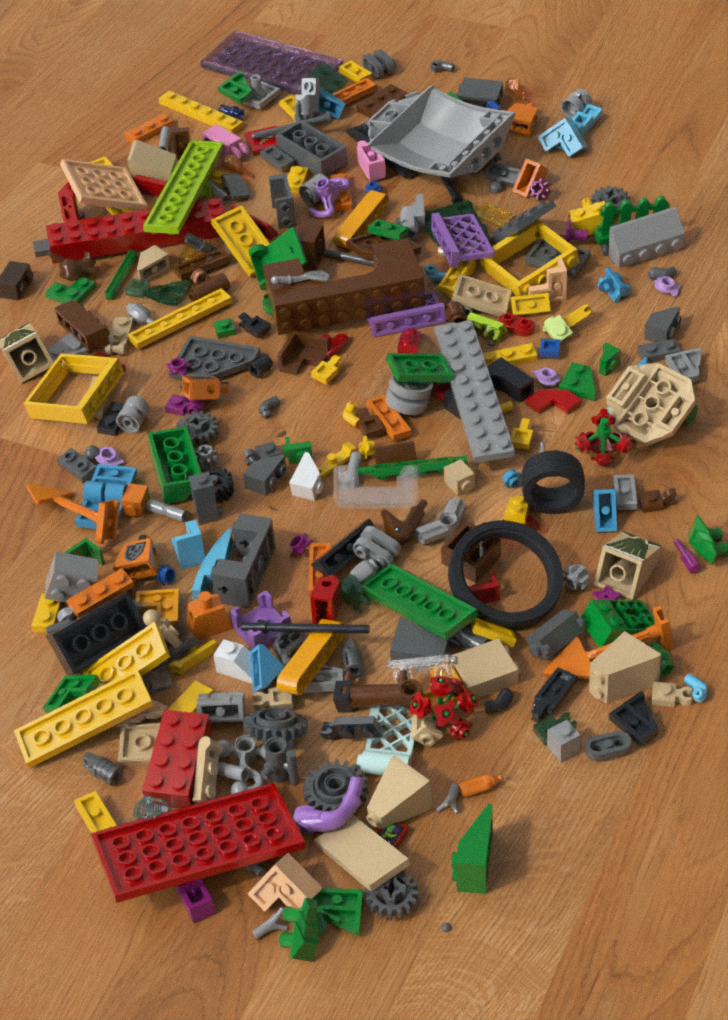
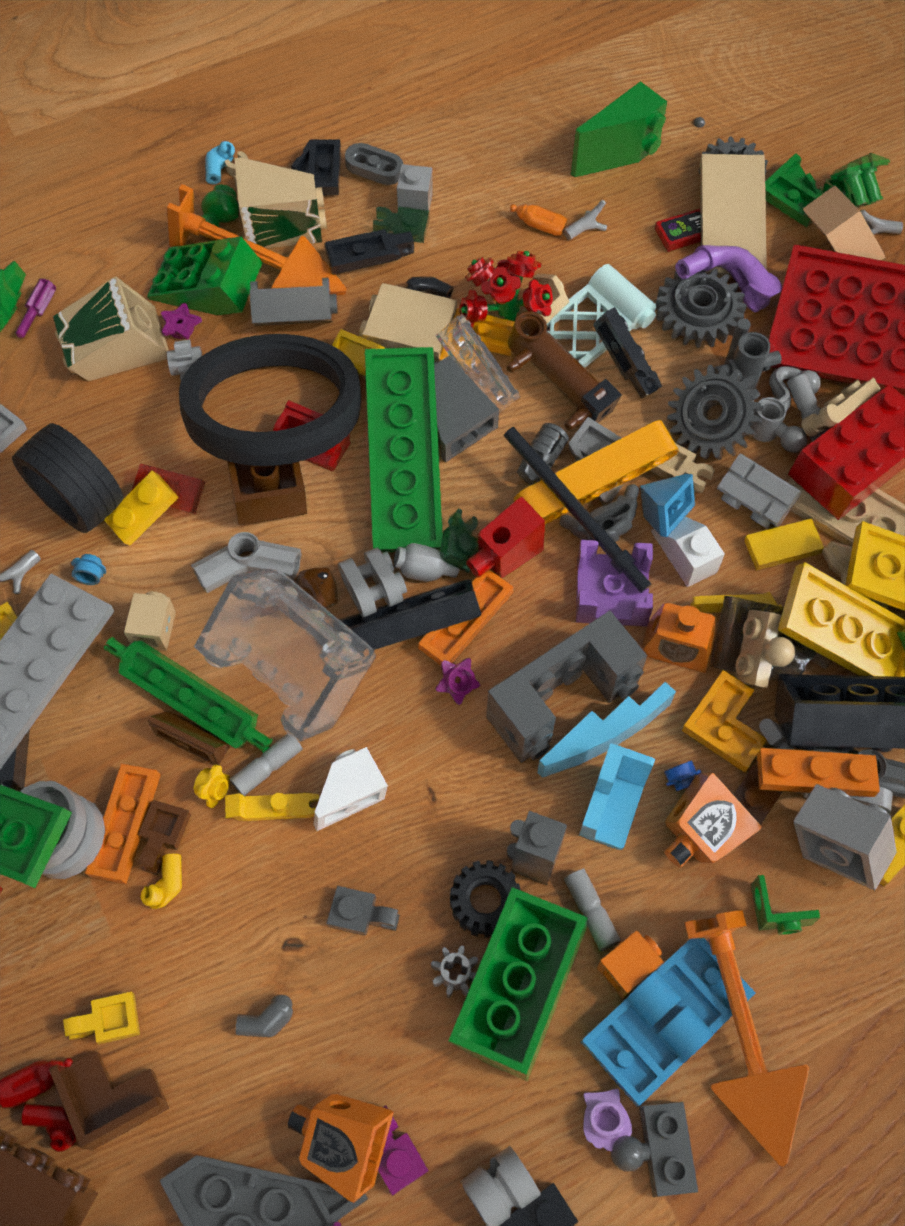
camera: 145 degrees left, 20 degrees up
(200, 427) = (409, 1075): dark grey gear -> none
(261, 364) = (194, 1135): black bush -> none
(264, 474) = (398, 855): dark grey slope -> none
(296, 451) = (313, 856): green bracket -> none
(399, 795) = (647, 237): tan slope -> none
(604, 510) = (29, 419): dark azure slope -> none

